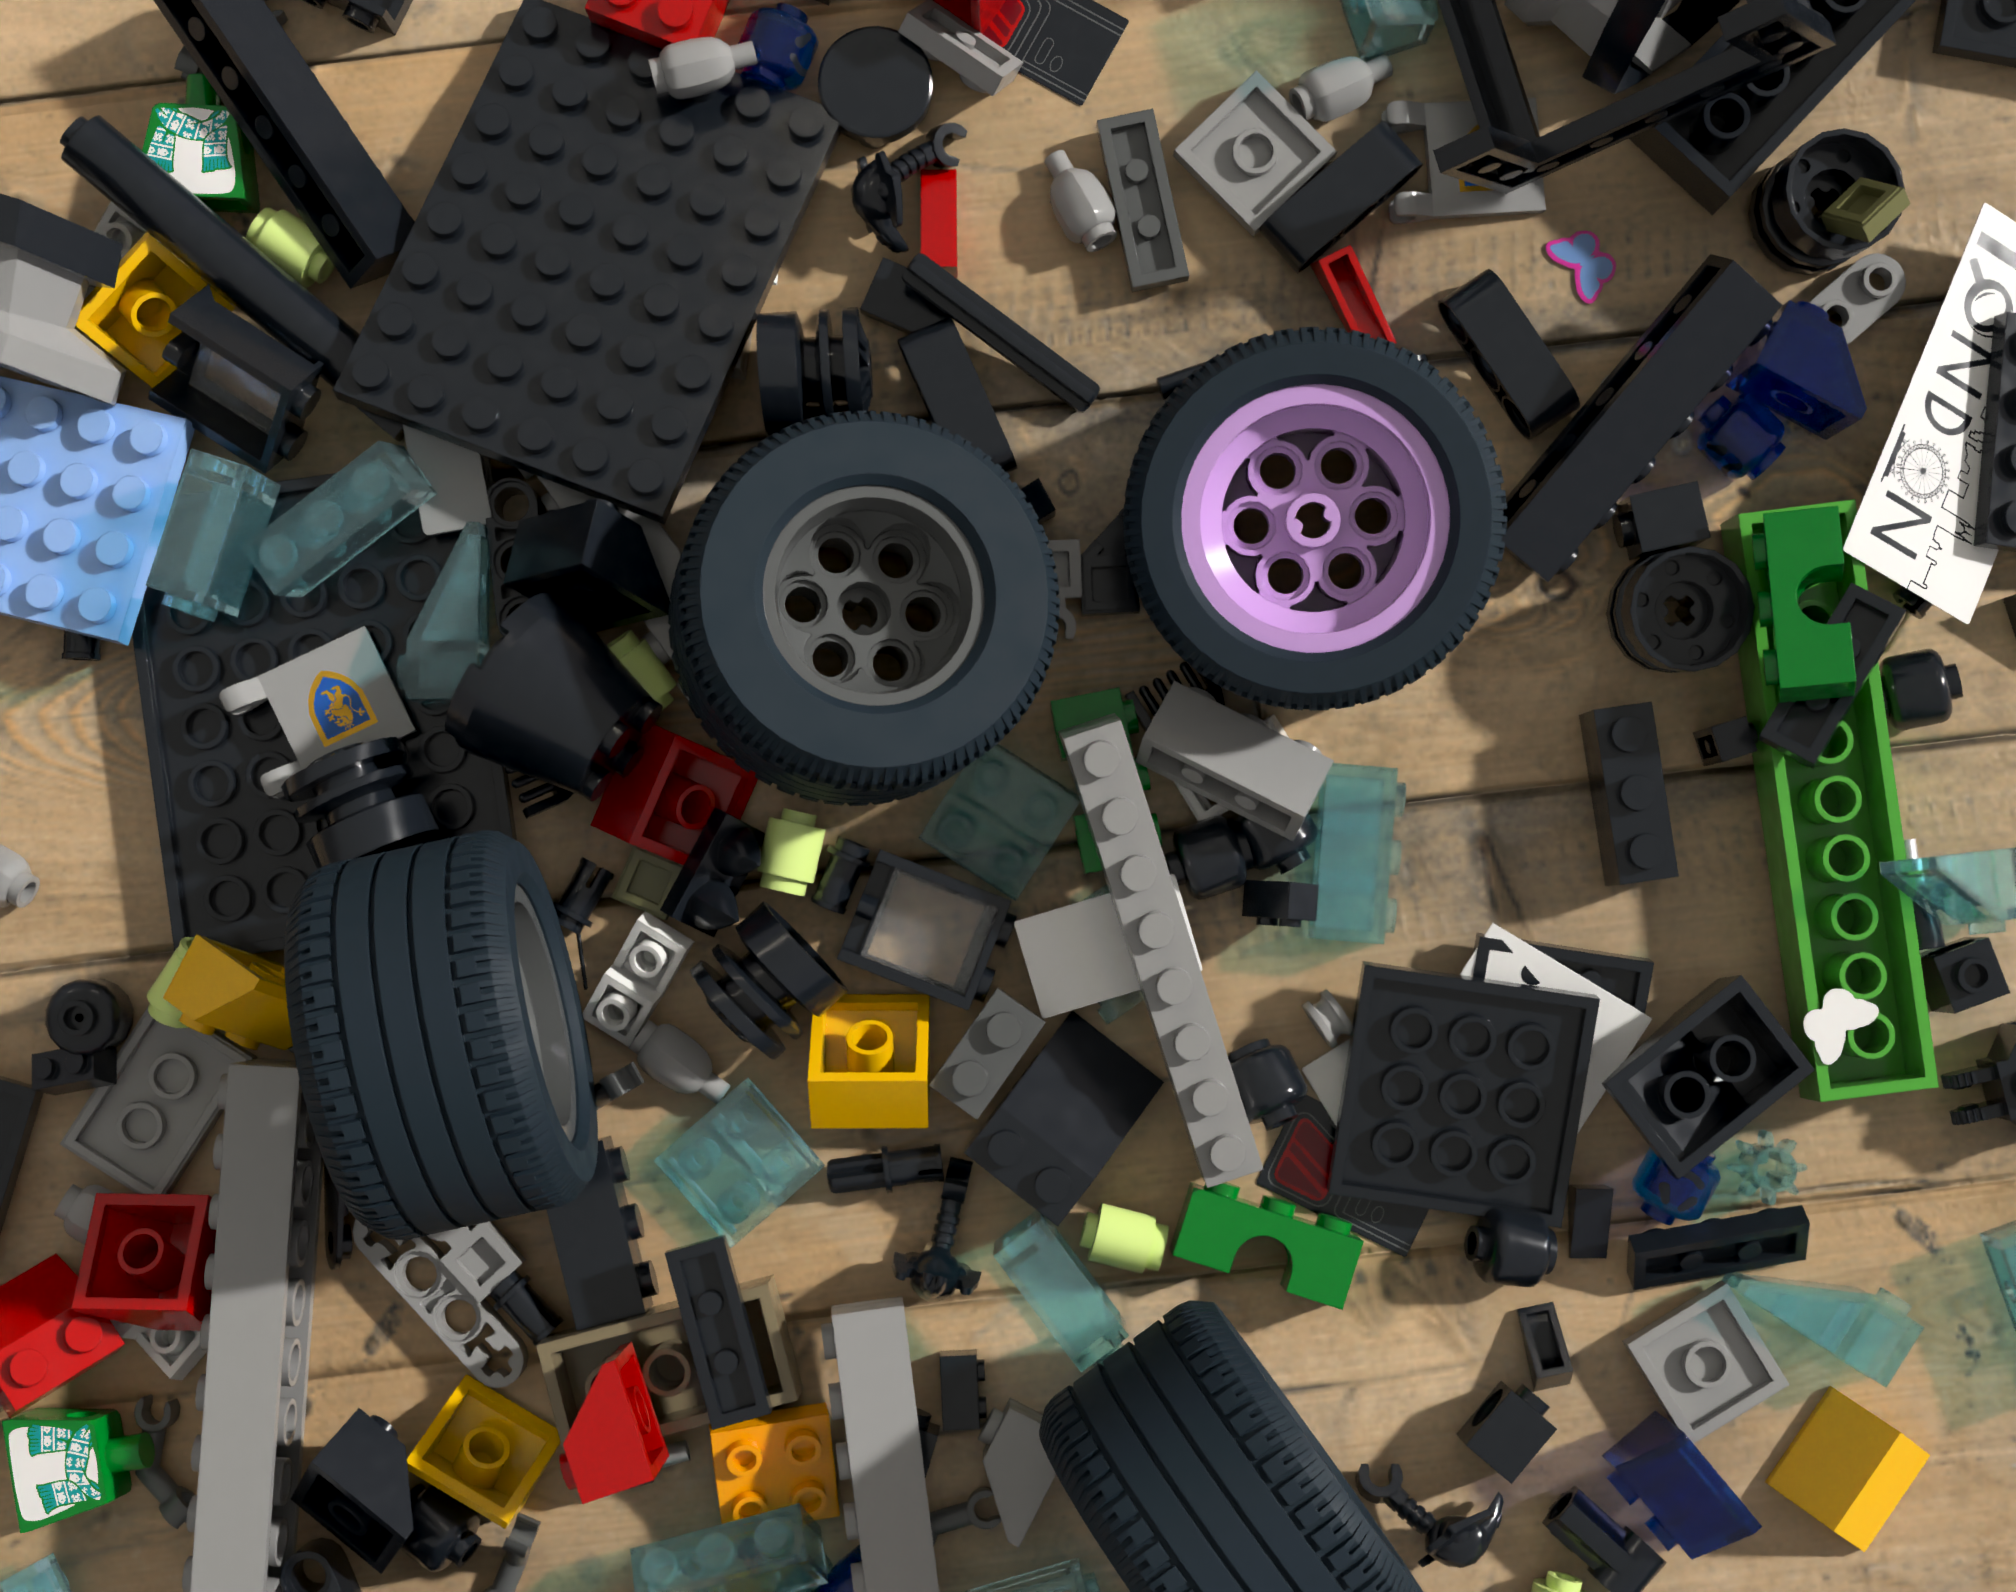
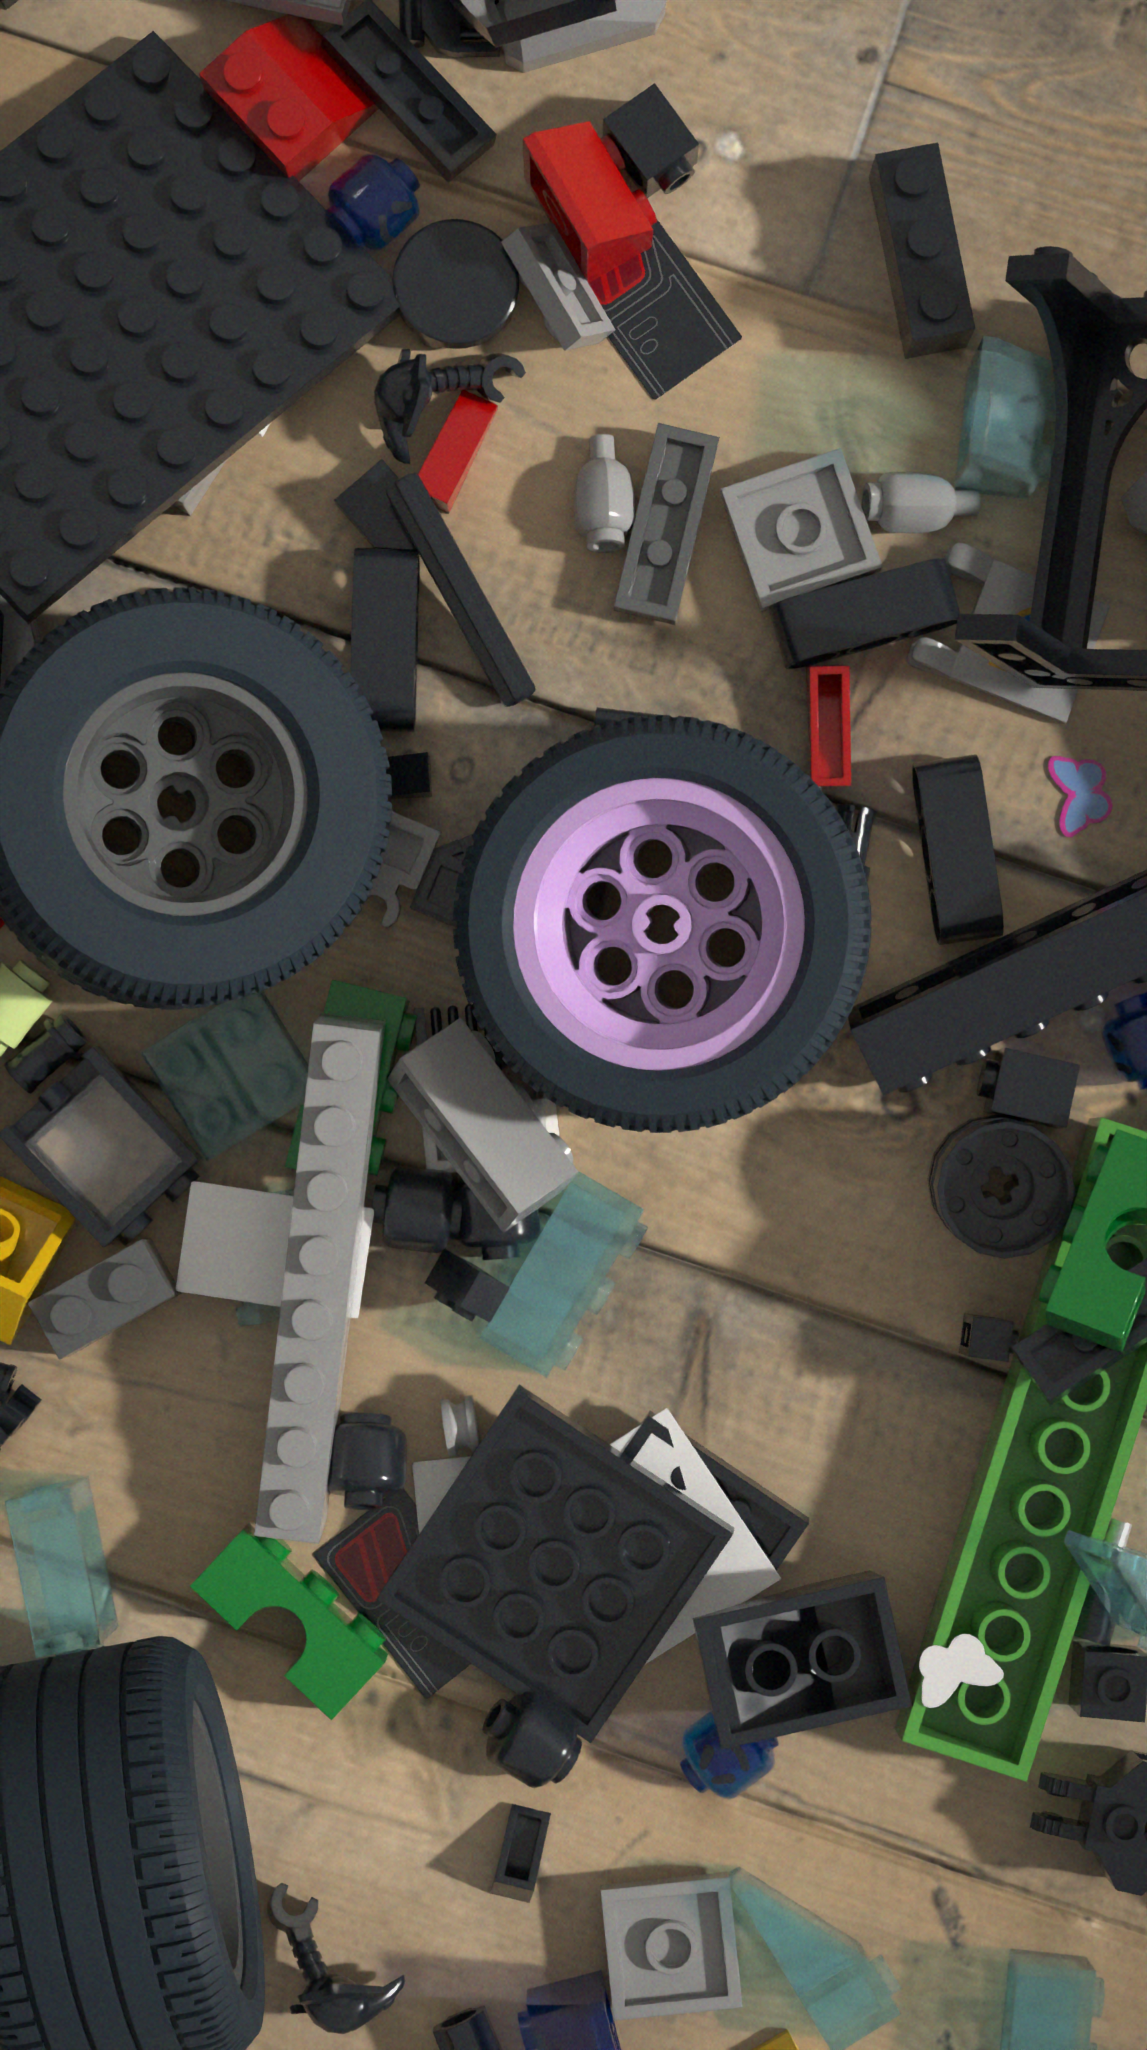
camera: 20 degrees right, 0 degrees up
(699, 66) = (283, 184): light grey plant -> none
(811, 371) = (243, 538): black wheel -> none
(1064, 1118) = (150, 1399): black slope -> none
(1124, 1239) = (152, 1547): yellowish green brick -> none
(1508, 1429) = (442, 1918): black brick -> none
(1589, 1220) = (624, 1749): black piece -> none
(1628, 794) = (864, 1345): black brick -> none
(1717, 1247) = (737, 1836): black plate -> none
(1774, 1180) = (831, 1798): clear light blue gear -> none

